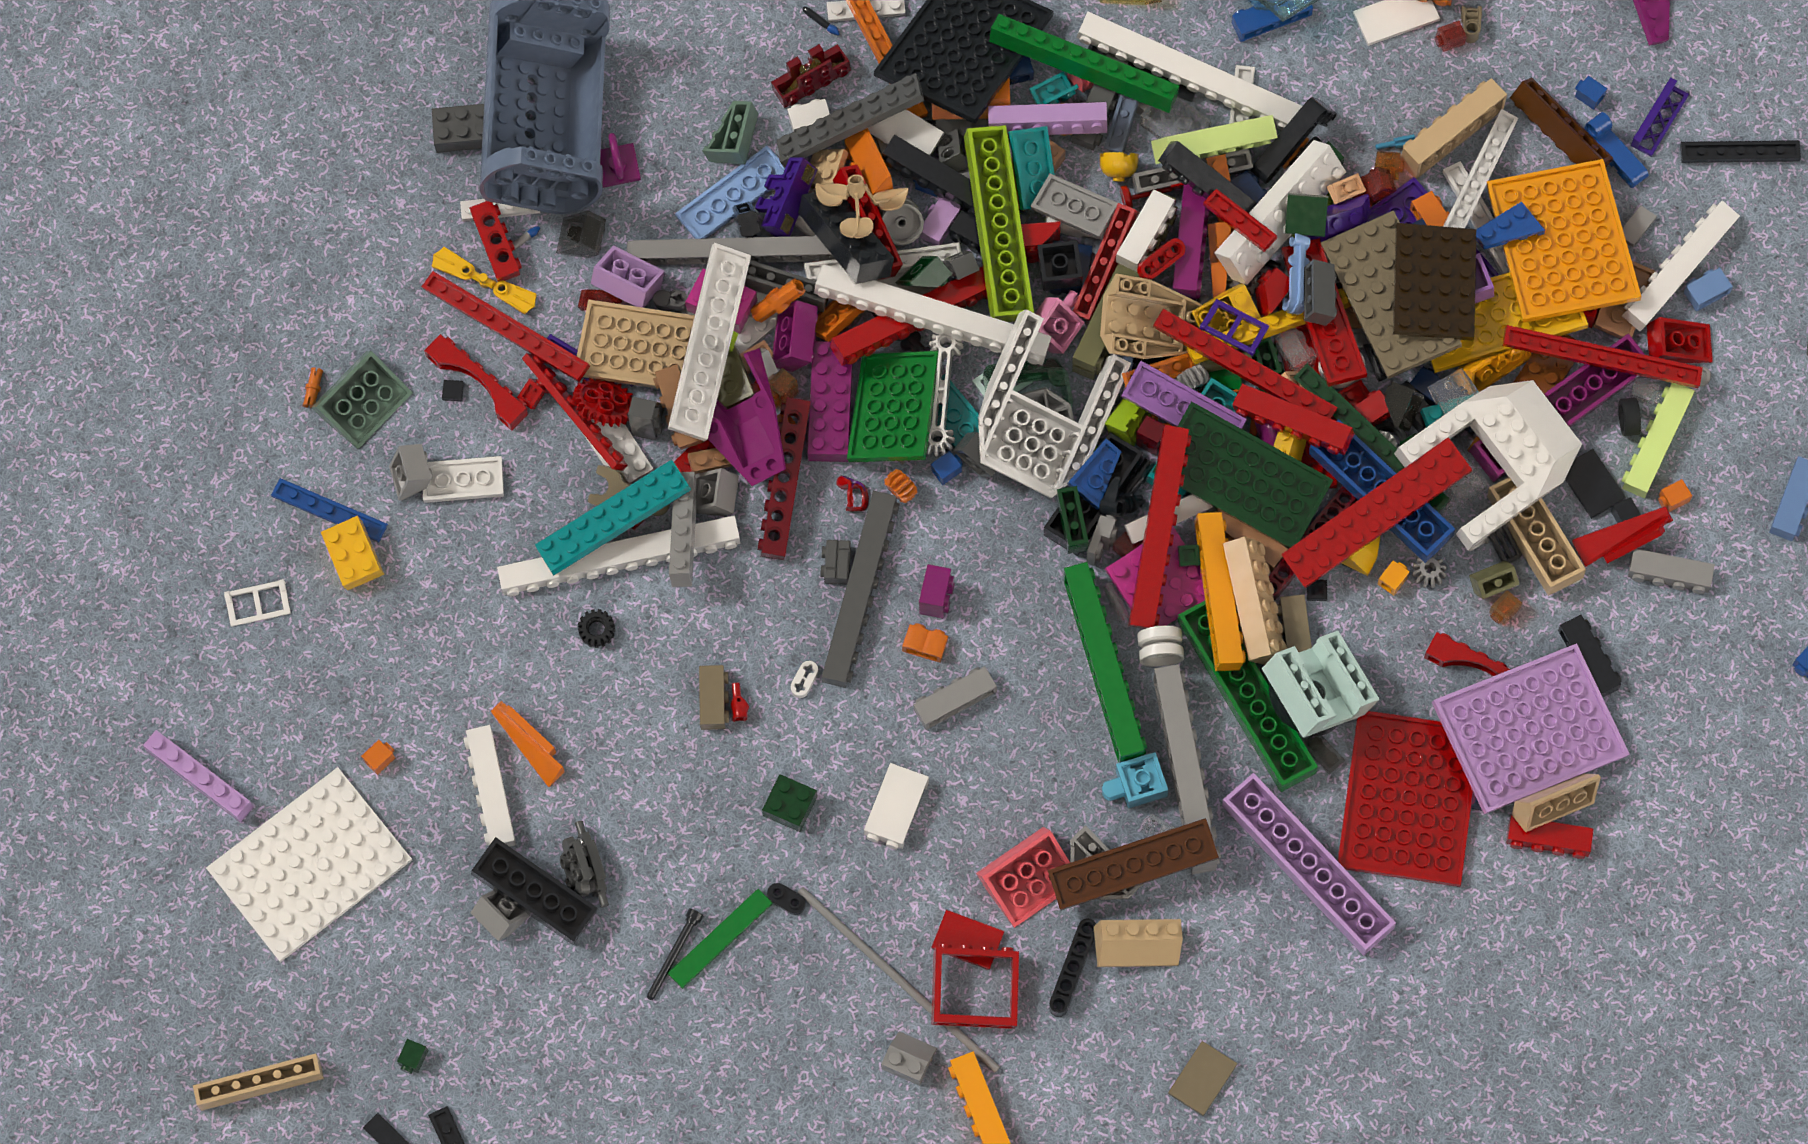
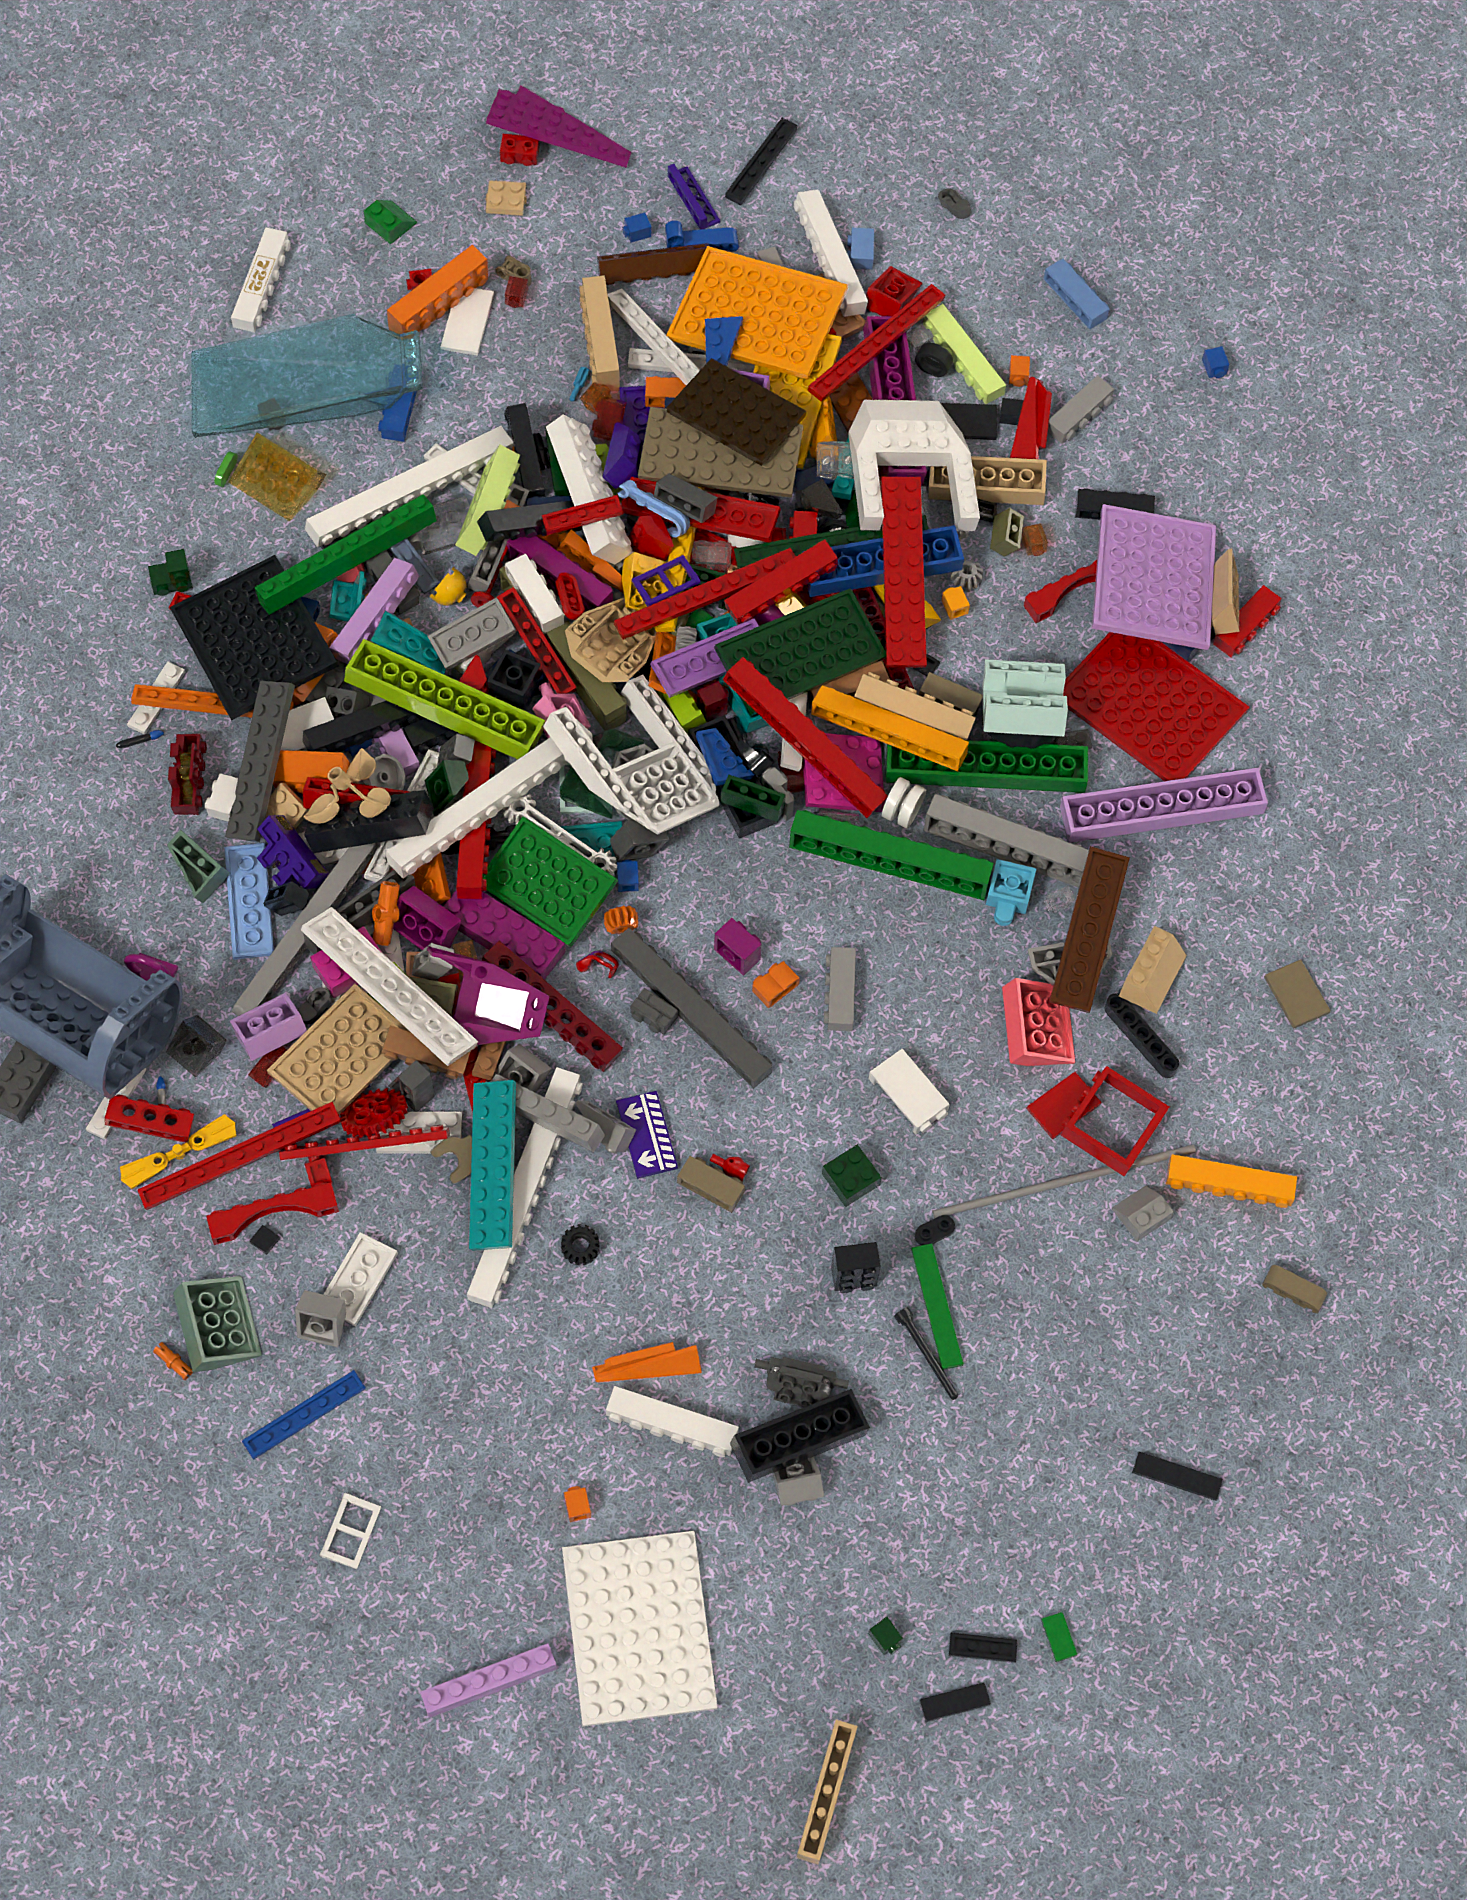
camera: 65 degrees left, 5 degrees down
(352, 553) = (364, 1414): yellow brick -> none
(704, 850) = (855, 1267): none -> black brick
(709, 586) = (617, 1133): none -> light grey slope
(726, 622) = (651, 1144): none -> dark purple tile
(800, 676) = (739, 1103): white beam -> none
(1188, 555) = (840, 733): dark green plate -> none
(1306, 214) = (611, 466): dark green tile -> none
(1346, 188) = (601, 433): light nougat plate -> none

